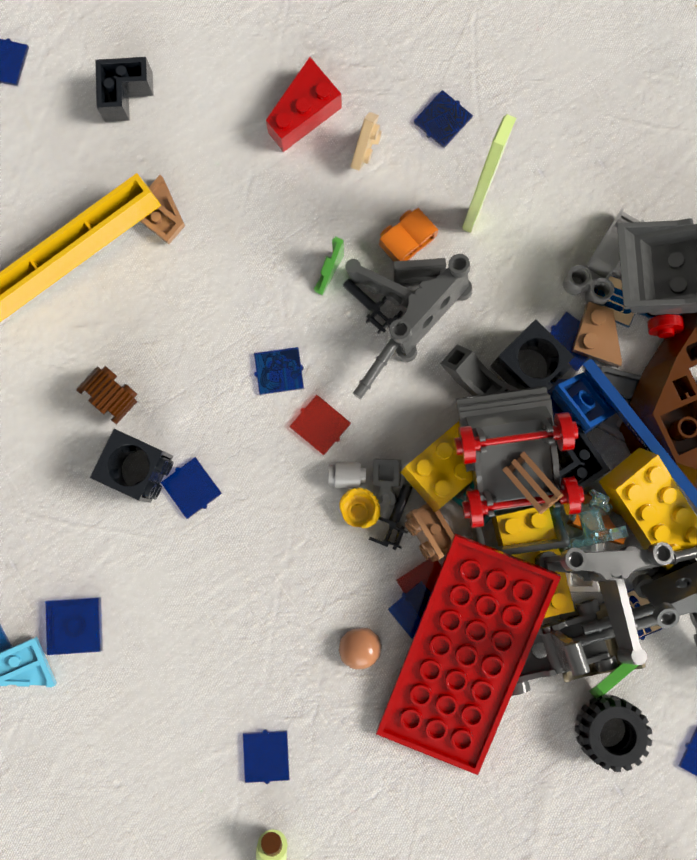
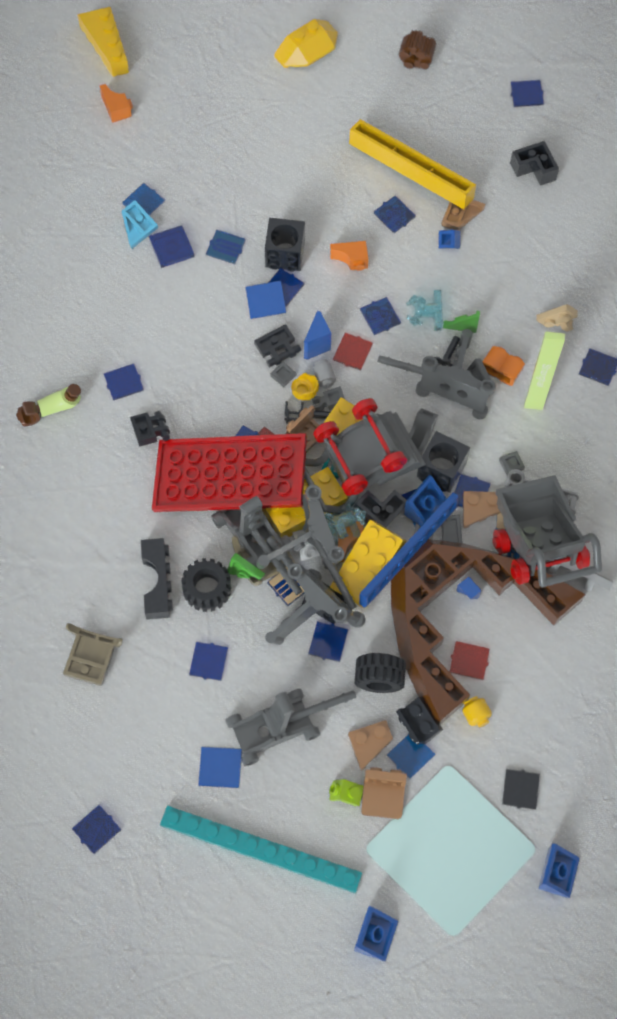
camera: 70 degrees right, 15 degrees down
(100, 548) = (225, 246): none -> clear blue piece
(108, 394) = (326, 216): reddish brown brick -> none
(129, 300) = (394, 214): none -> clear blue piece
(175, 376) = (351, 253): none -> orange arch
(195, 241) = (449, 239): none -> blue slope
(203, 518) = (265, 299): none -> blue piece
(274, 525) = (275, 341): none -> black plate
(293, 465) = (318, 337): none -> blue slope
(297, 299) = (427, 310): none -> clear light blue piece
(303, 106) = (567, 274): red wedge -> none
(325, 529) = (283, 374): none -> dark grey tile
(355, 752) = (144, 430): none -> black plate
(360, 648) = (211, 416): nougat hair -> none
(516, 464) = (351, 455): medium nougat tile -> none
(546, 275) = (511, 462): none -> dark grey tile
(547, 791) = (157, 601): none -> black arch

